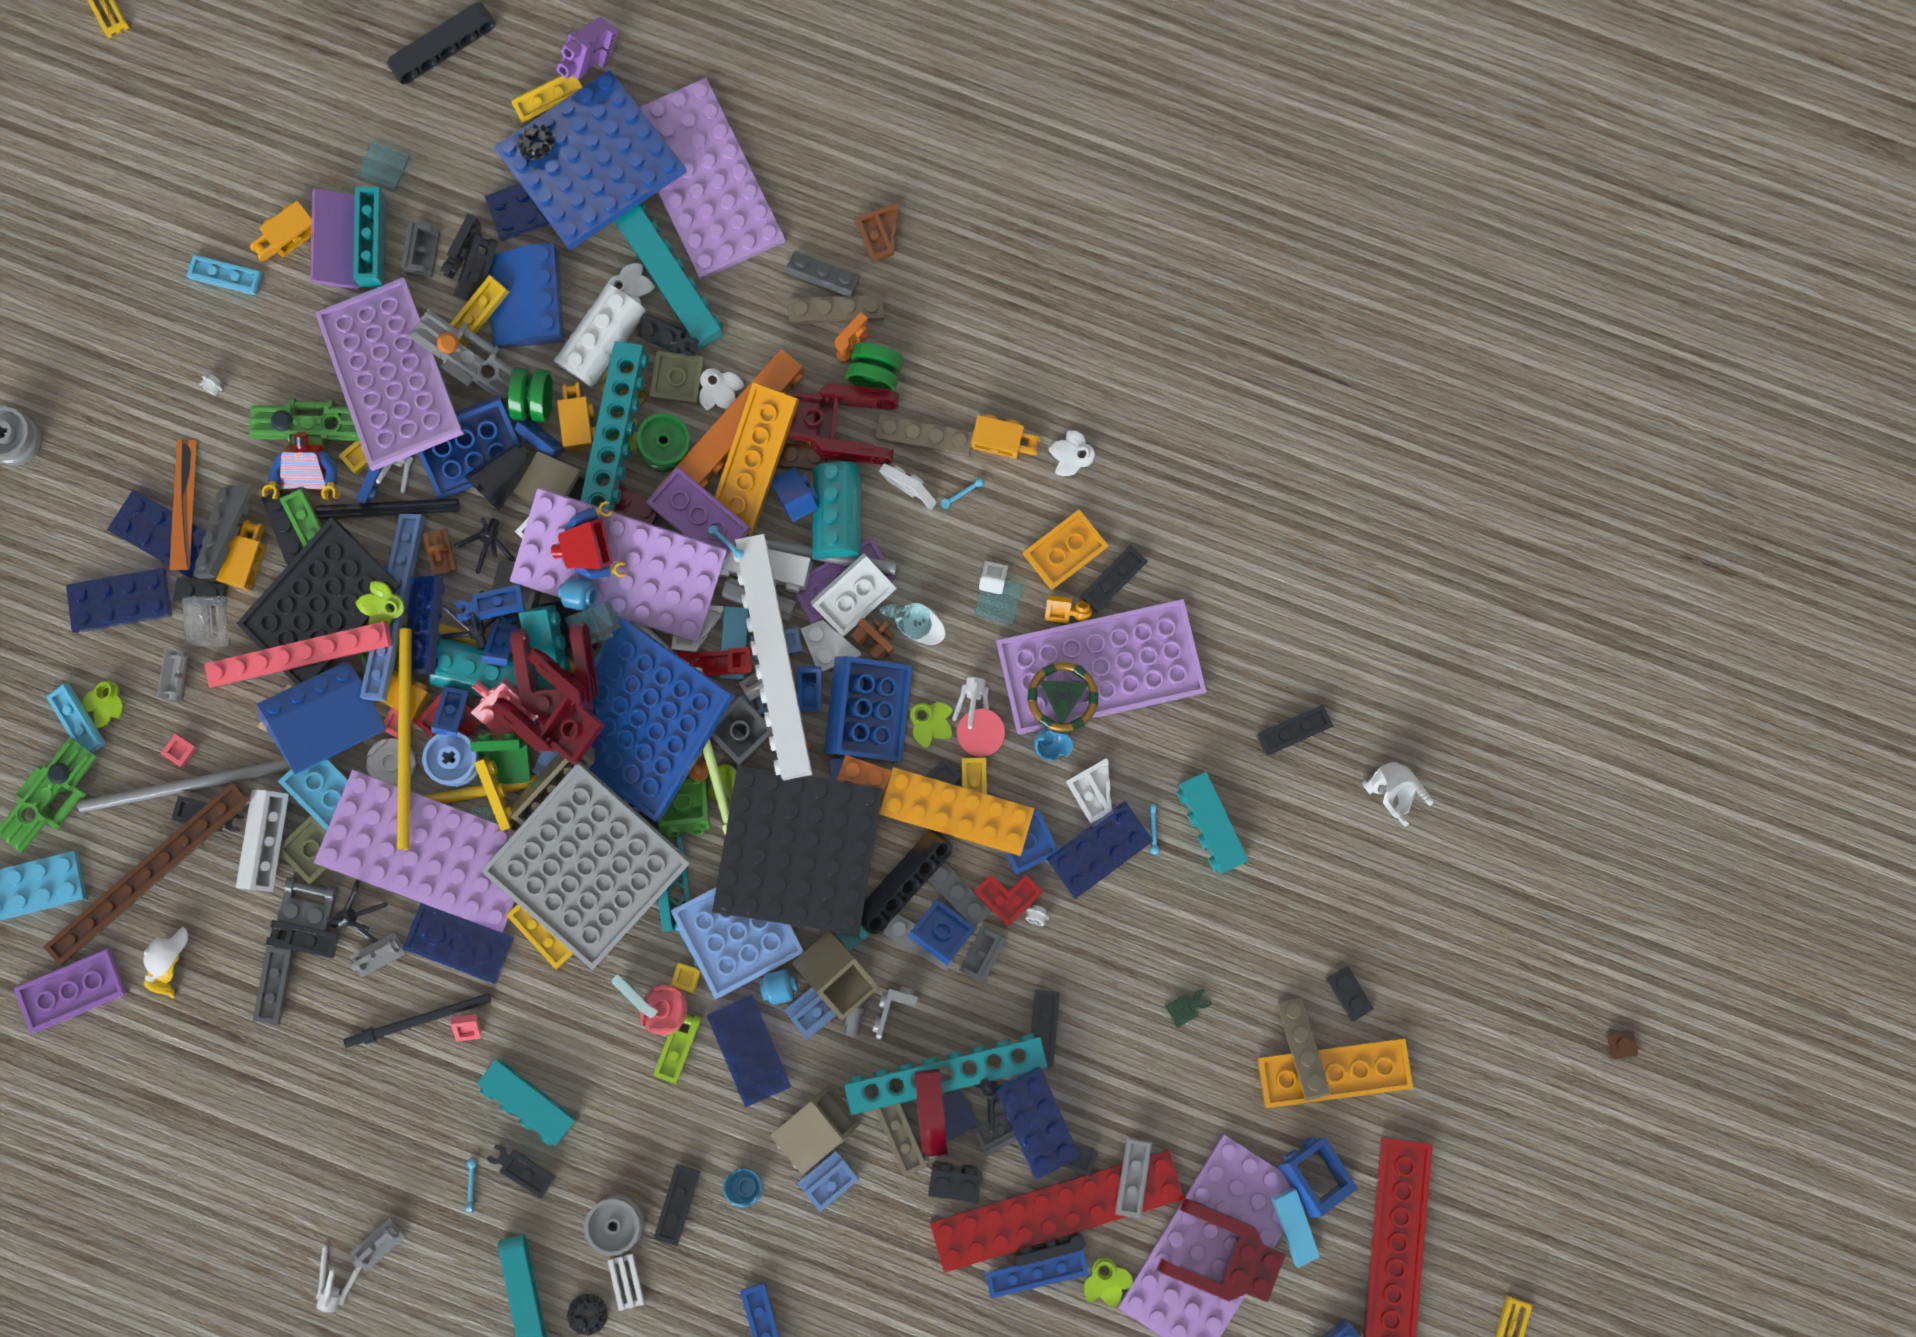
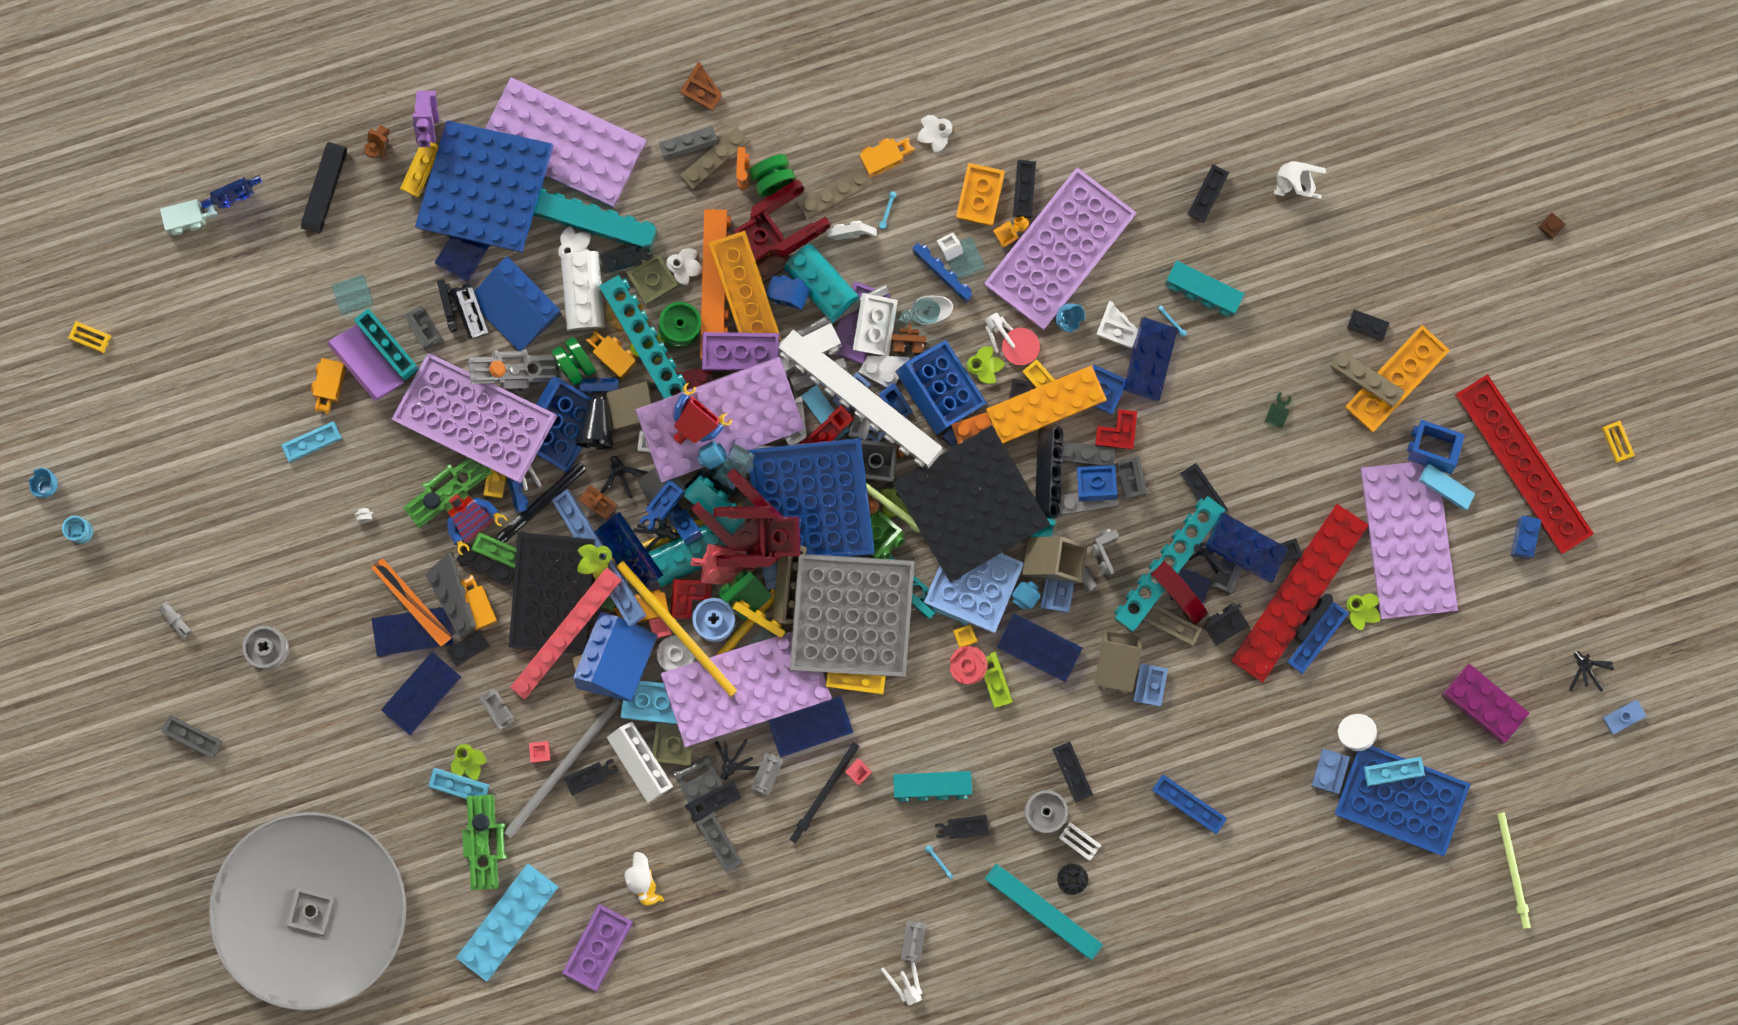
camera: 35 degrees left, 0 degrees up
(147, 873) = (586, 838): reddish brown plate -> none
(199, 621) = (483, 663): clear plate -> none
(450, 711) = (690, 590): blue slope -> none
(480, 306) = (493, 331): yellow plate -> none
(525, 38) = (377, 142): none -> dark orange hips
(539, 149) = (449, 205): black gear -> none
(634, 996) = (944, 669): light aqua tile -> none
(713, 530) = (760, 353): medium azure hinge -> none
(743, 1187) = (1103, 728): dark azure hair -> none
(966, 607) = (948, 278): none -> blue plate
(1036, 915) = (1145, 429): white plate -> none
(1062, 696) = (1053, 283): piece -> none
(1133, 1177) = (1328, 535): light grey tile -> none
(1249, 1267) = (1438, 530): dark red plate -> none

